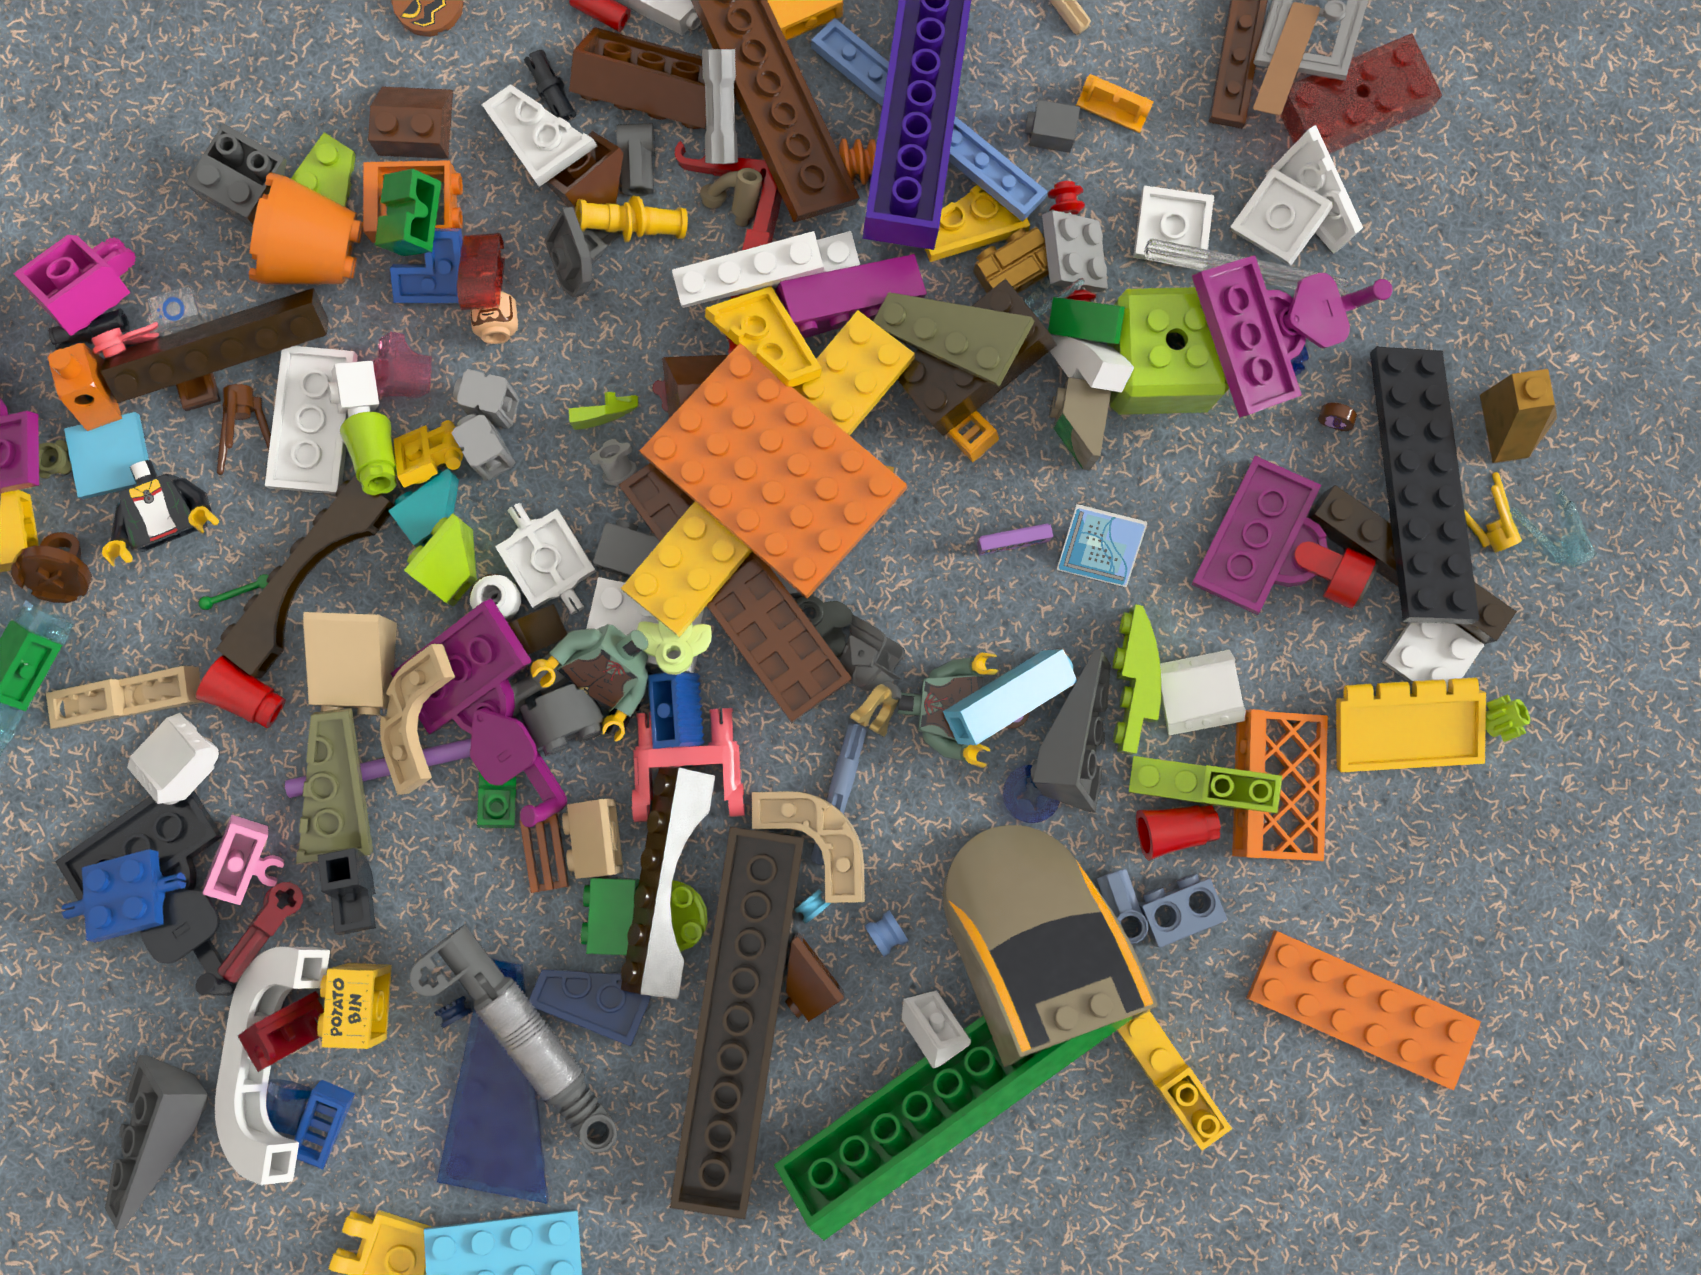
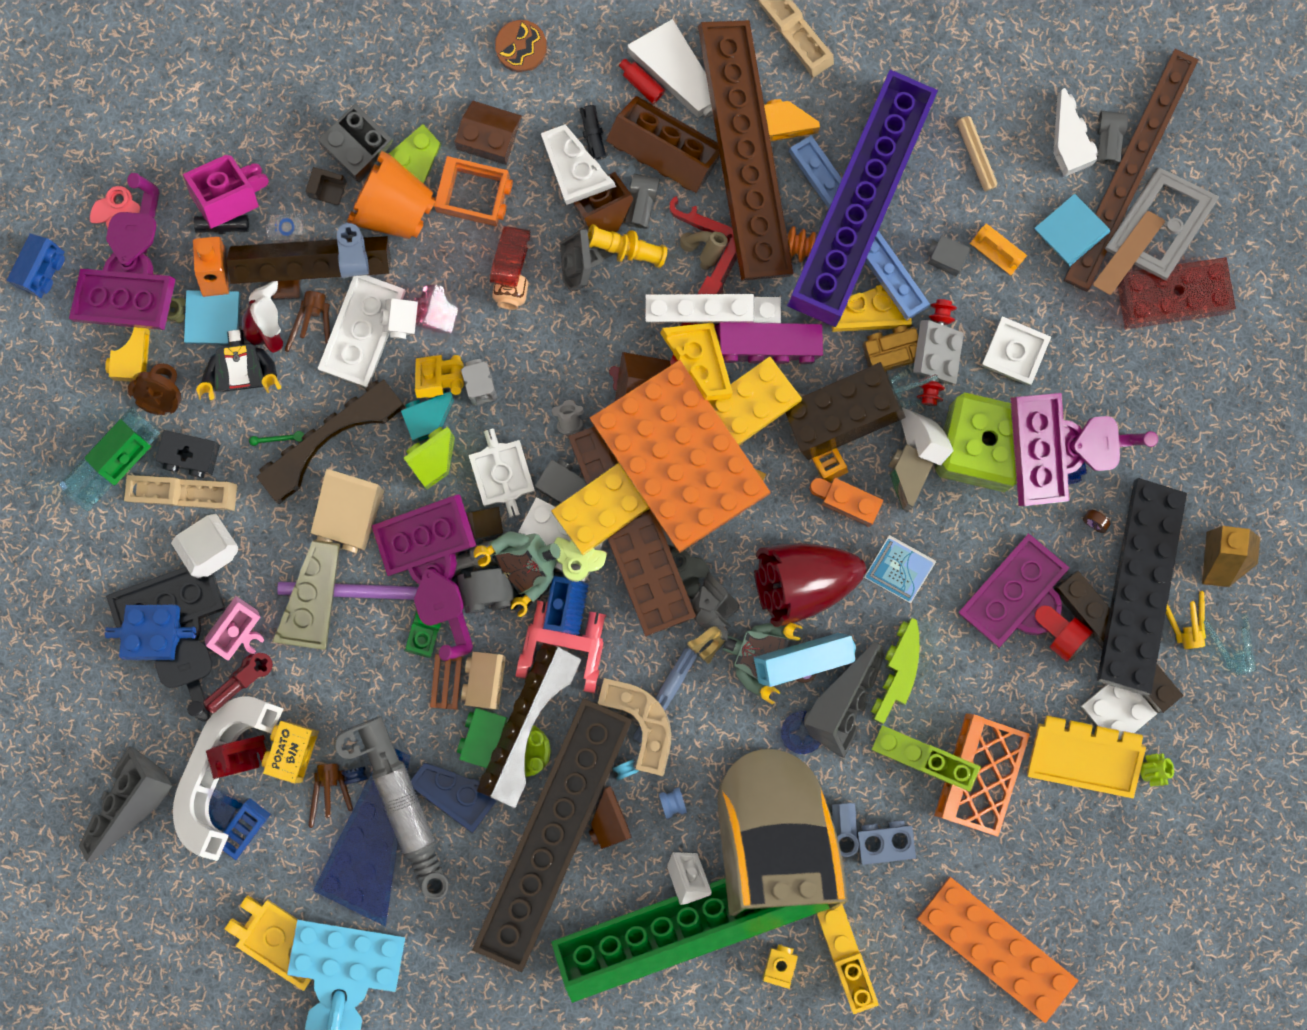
camera: 20 degrees right, 0 degrees up
(97, 639) = (175, 444): none -> black brick
(113, 341) = (238, 240): coral plate -> none
(172, 438) = (261, 318): none -> hair
(215, 244) = (325, 186): none -> dark brown panel
(239, 693) = (263, 512): red plant -> none
(263, 315) = (352, 254): none -> sand blue piece
(350, 884) = (305, 668): black brick -> none
(371, 451) = (399, 365): lime plant -> none
(398, 729) = (369, 565): tan plate -> none
(411, 212) = (472, 204): green brick -> none
(414, 1024) = (328, 776): none -> reddish brown plant
(436, 278) = (479, 251): blue plate -> none
(487, 397) = (490, 348): light grey brick -> none
(494, 584) = (459, 482): white head -> none
(598, 415) = (579, 377): lime slope -> none
(719, 80) = (715, 164): light grey axle -> none
(961, 335) = (837, 394): olive wing -> none
(992, 589) = (810, 578): none -> dark red cylinder
(1009, 474) = (847, 500): none -> orange brick
(1014, 539) = (858, 549): medium lavender tile -> none
(1086, 320) = (930, 406): green slope -> none
(1086, 1128) = (777, 977): none -> yellow brick
(1176, 829) = (898, 785): red plant -> none
(1201, 692) = (942, 693): white slope -> none
(1203, 52) = (1072, 229): none -> medium azure tile
(1206, 259) = (1041, 387): clear axle -> none
(1281, 216) = (1095, 365): white plate -> none
(1312, 166) = (1126, 354): white wing -> none

